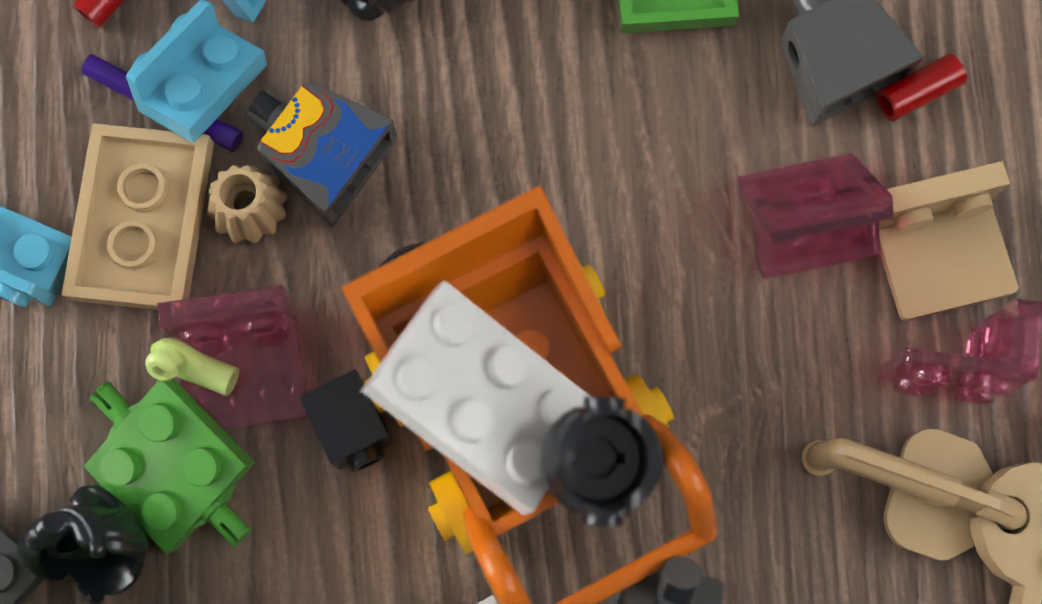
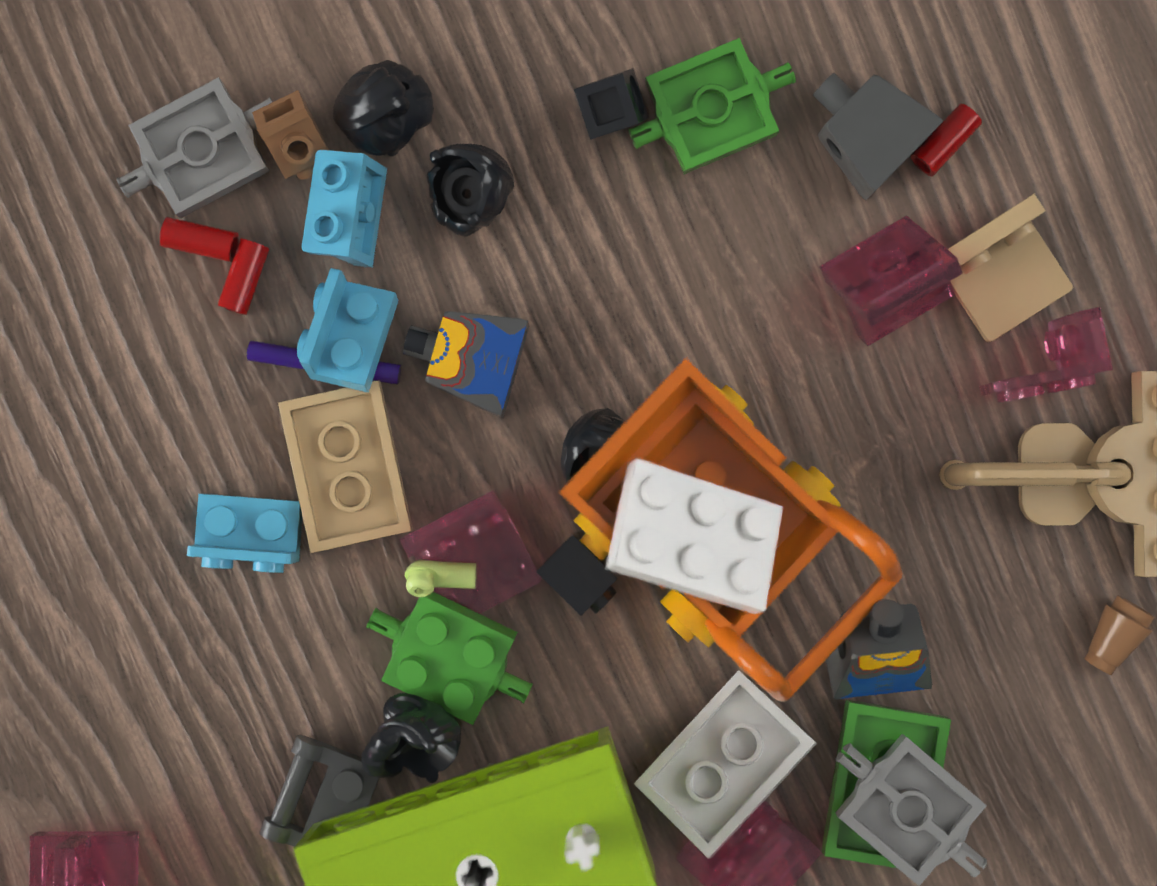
camera: 25 degrees left, 10 degrees up
(257, 218) = (414, 411): tan piece -> none
(601, 460) = (806, 559): black cap -> none

